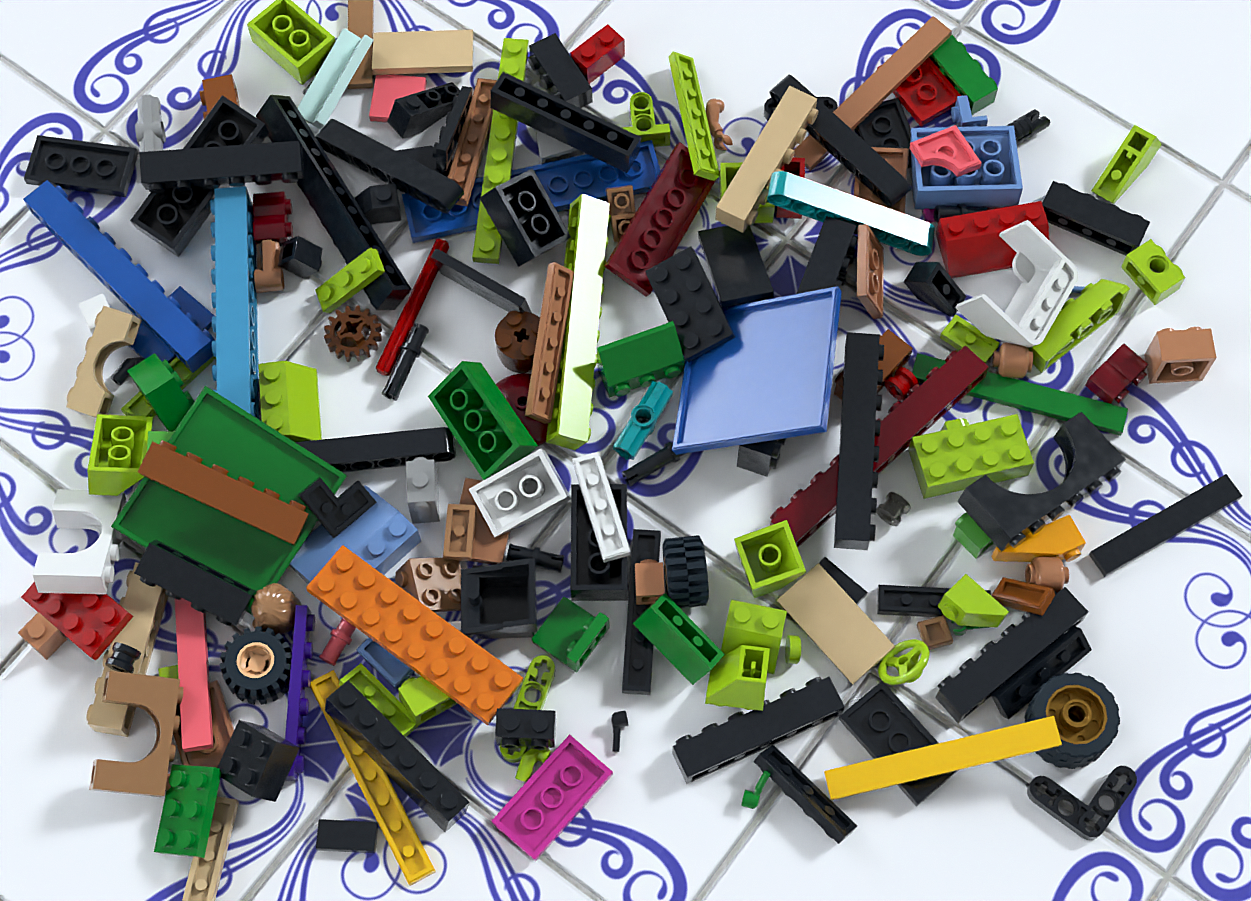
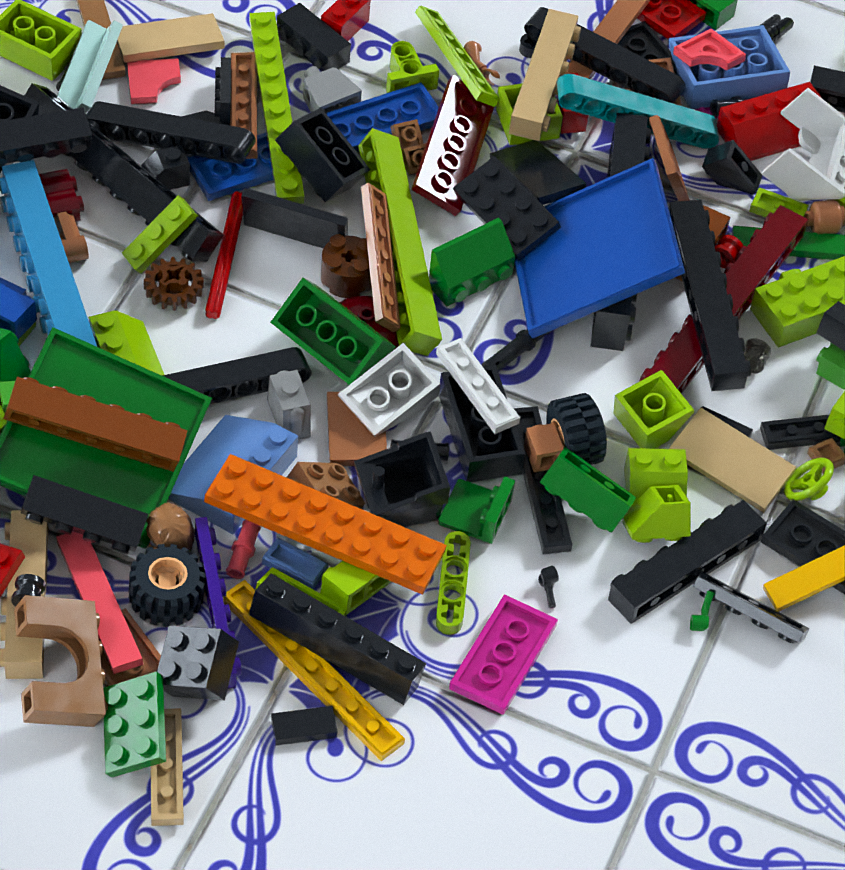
camera: 20 degrees left, 15 degrees down
(300, 257) = (100, 223): black brick -> none
(336, 512) = (206, 432): black tile -> none
(409, 352) = (236, 292): black pin -> none
(422, 109) = (183, 85): black slope -> none
(459, 532) = (338, 435): medium nougat plate -> none
(525, 728) = (462, 590): black brick -> none
(528, 760) = (469, 627): lime arm -> none
(565, 122) = (338, 68): black brick -> none
(636, 433) = (488, 317): teal piece -> none
(793, 649) = (698, 488): lime tile -> none
(962, 114) = (710, 21): medium blue bracket -> none

